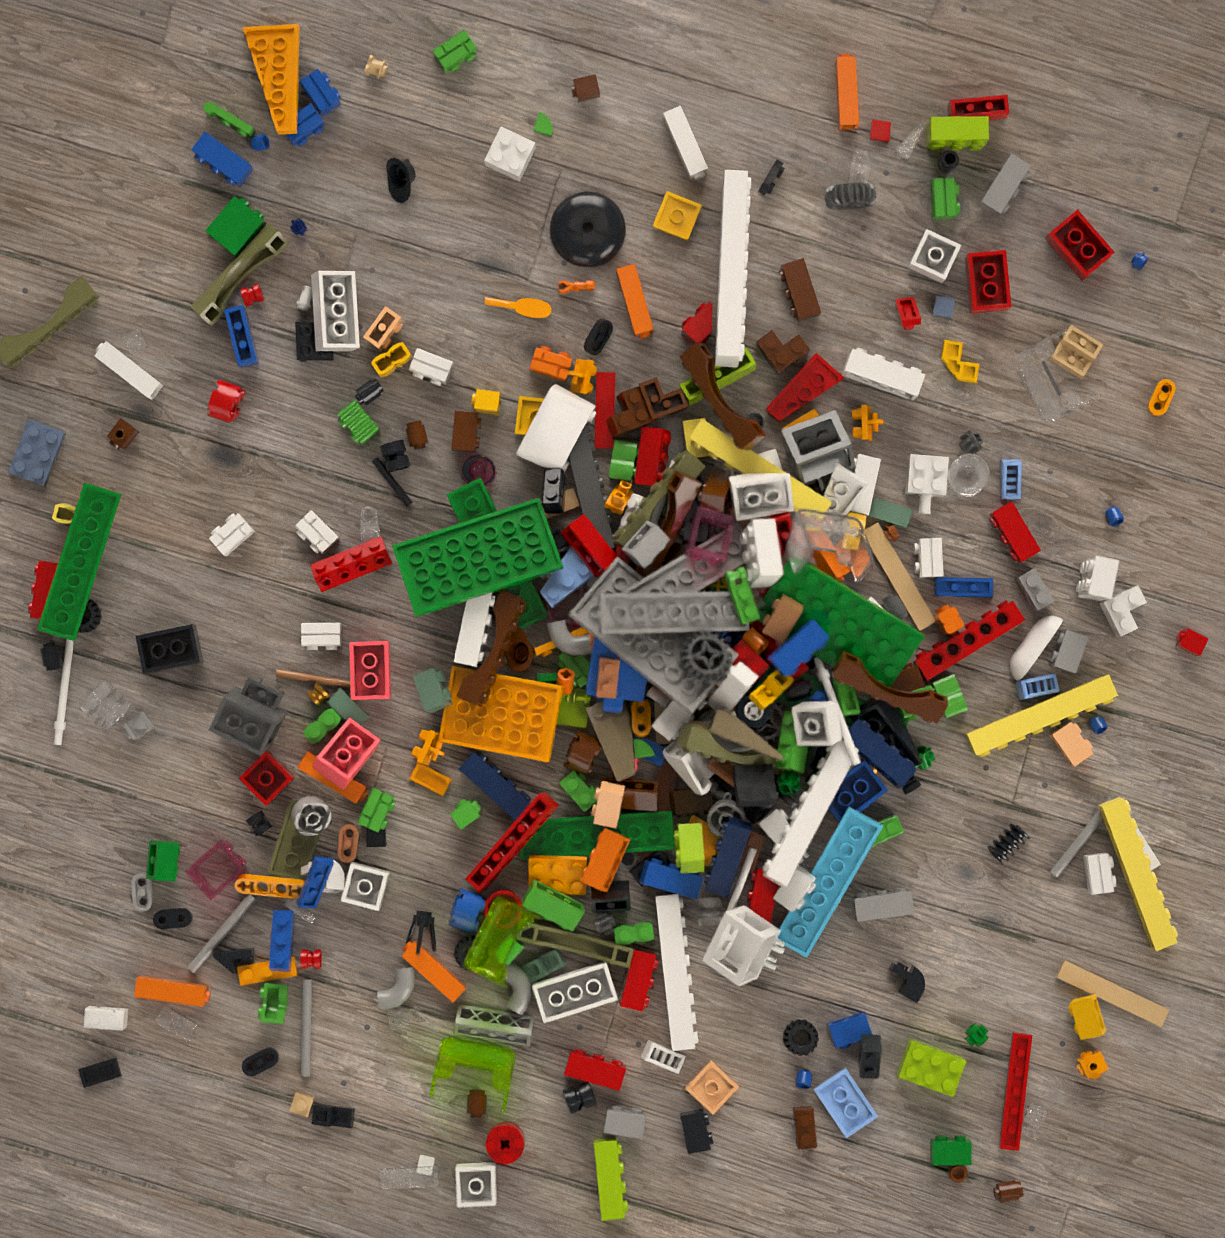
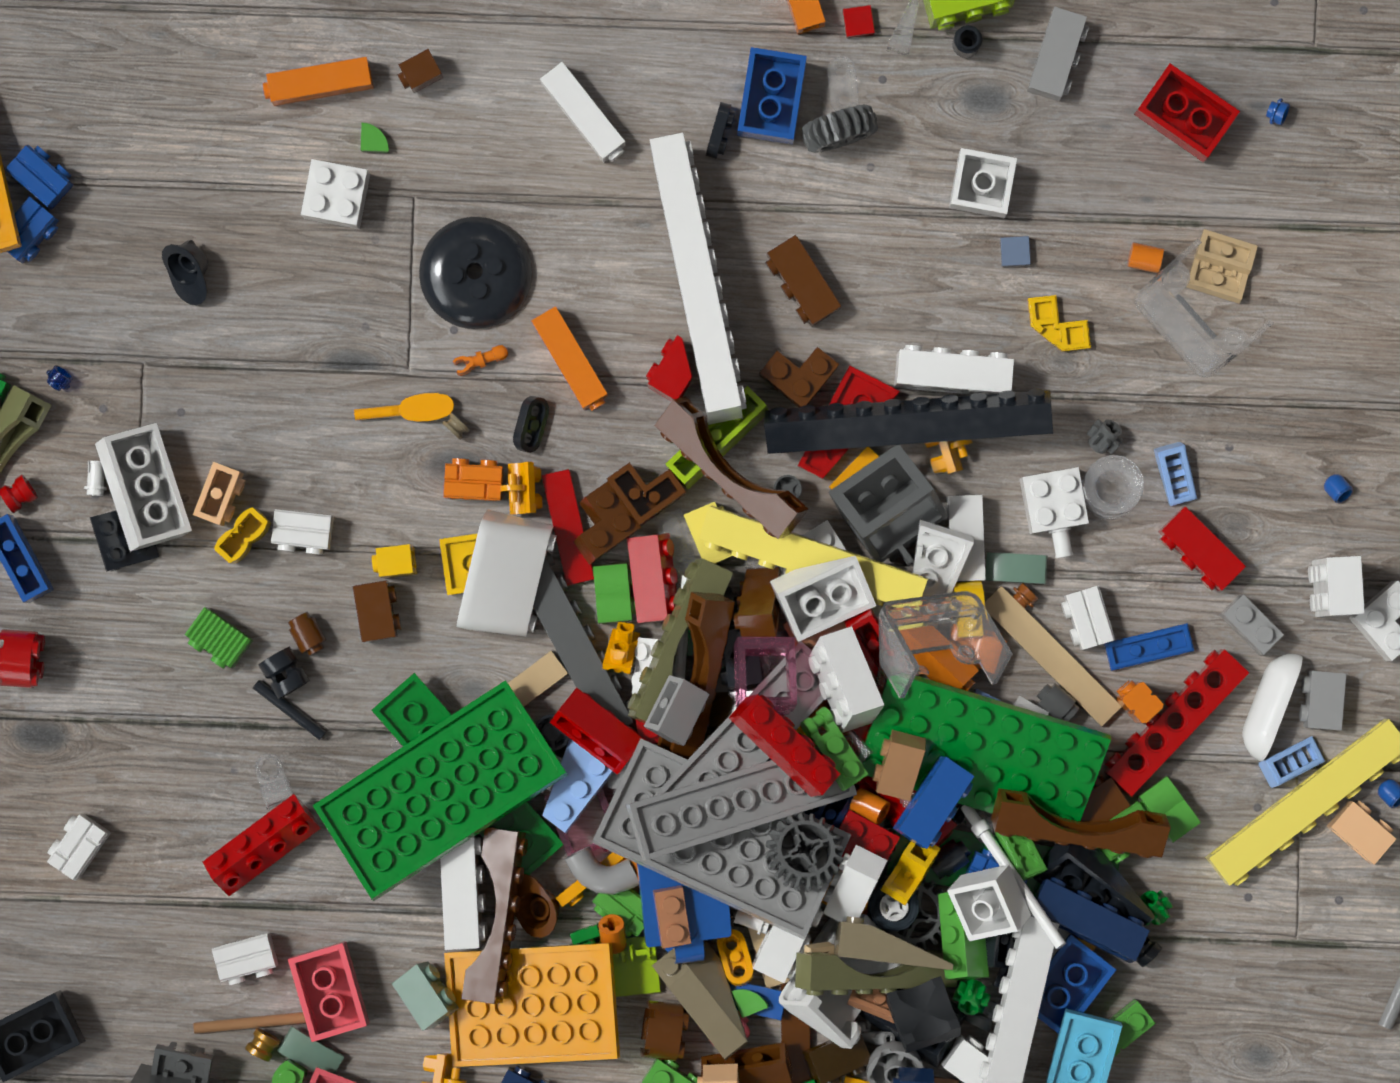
camera: 10 degrees left, 0 degrees up
(316, 532) = (200, 812): white brick -> none
(368, 392) = (222, 590): black brick -> none
(376, 67) = (110, 120): tan brick -> none
(455, 52) = (219, 67): bright green brick -> none
(479, 467) = (407, 657): clear pink piece -> none
(518, 77) = (318, 81): none -> orange brick
(549, 325) = (455, 426): none -> dark tan bush
(553, 491) = (524, 664): black brick -> none
(677, 216) = (598, 220): yellow plate -> none
(711, 584) = (784, 745): none -> red brick
(811, 163) = (771, 95): none -> blue brick
(846, 397) = (908, 421): none -> black brick
(908, 312) = (966, 273): red tile -> none
(944, 198) = (975, 96): bright green brick -> none
(988, 281) = (1069, 199): red brick -> none
(1008, 842) = (1308, 998): black piece -> none
(1028, 333) = (1145, 257): none -> orange piece
(1161, 398) = (1360, 300): light orange plate -> none

